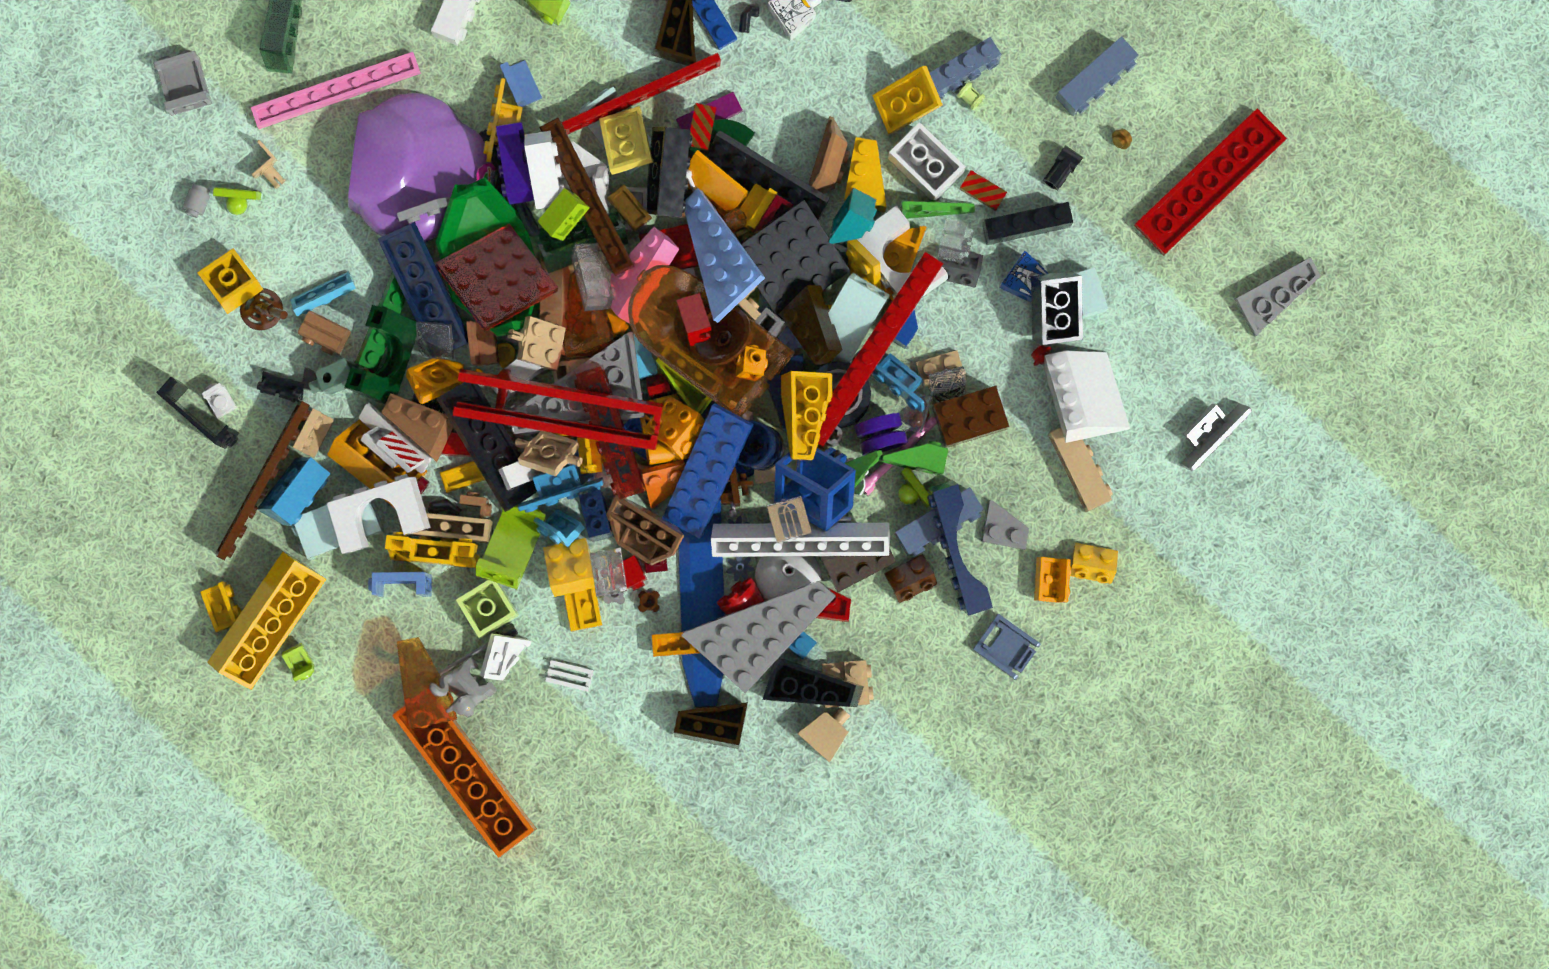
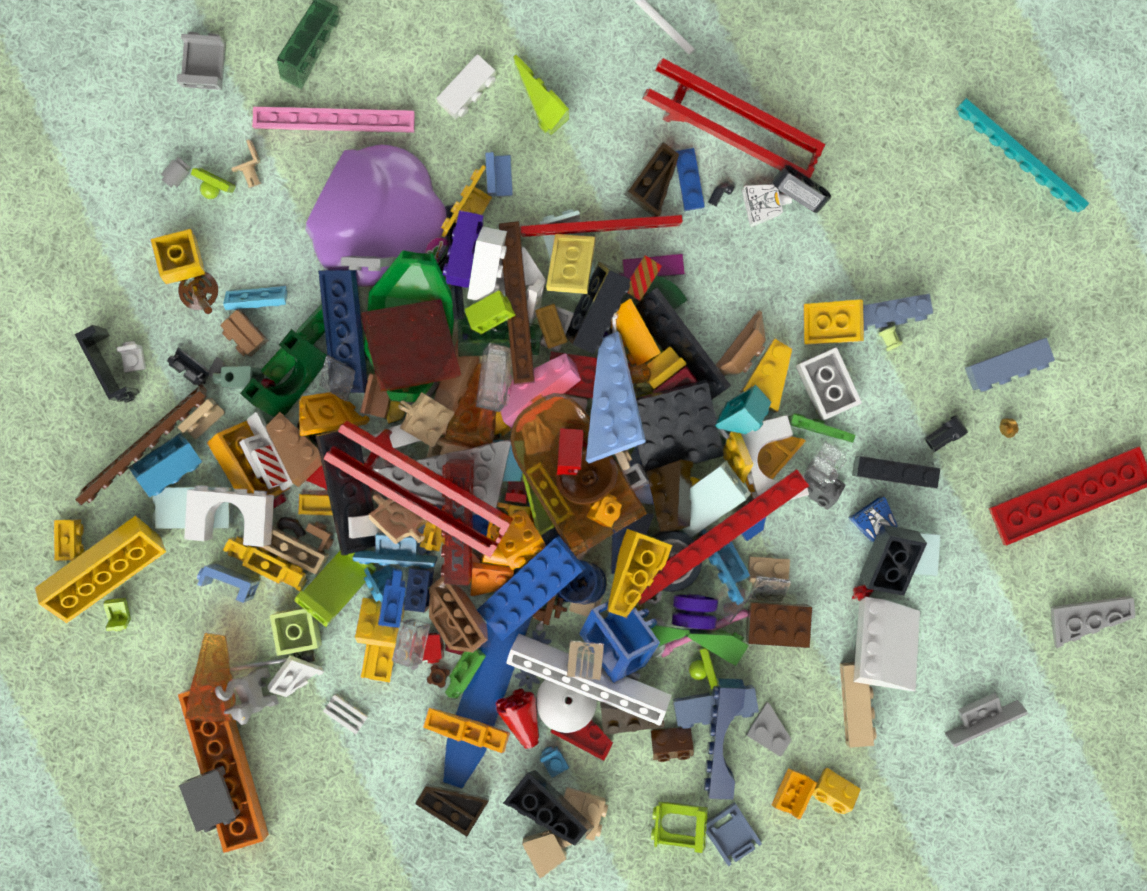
camera: 20 degrees right, 5 degrees up
(464, 805) = (208, 800): none -> dark grey panel
(574, 533) = (392, 600): none -> blue hinge
(673, 585) = (464, 672): none -> bright green hinge
(752, 639) = (516, 750): light grey wing -> none
(938, 676) = (661, 836): none -> lime panel
(983, 190) = (868, 426): tile -> none

